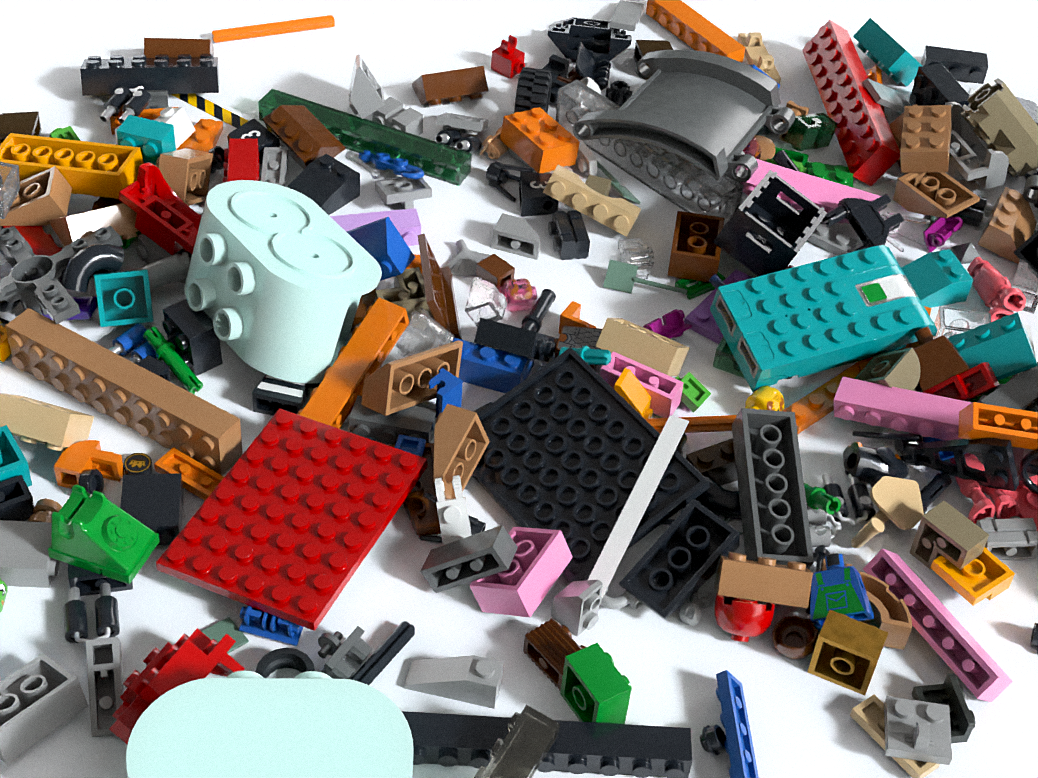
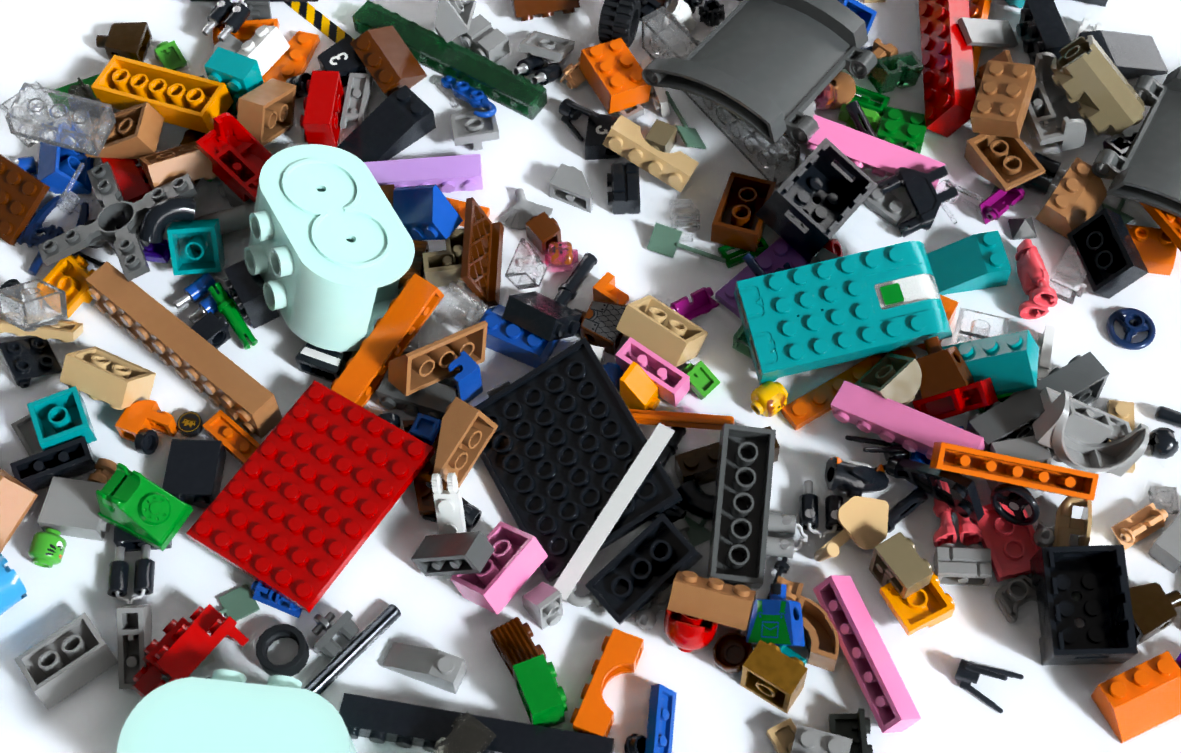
camera: 15 degrees right, 15 degrees up
(591, 356) = (603, 340): teal axle -> none
(672, 654) = (619, 656): none -> orange arch
(818, 499) = (784, 511): green pin -> none

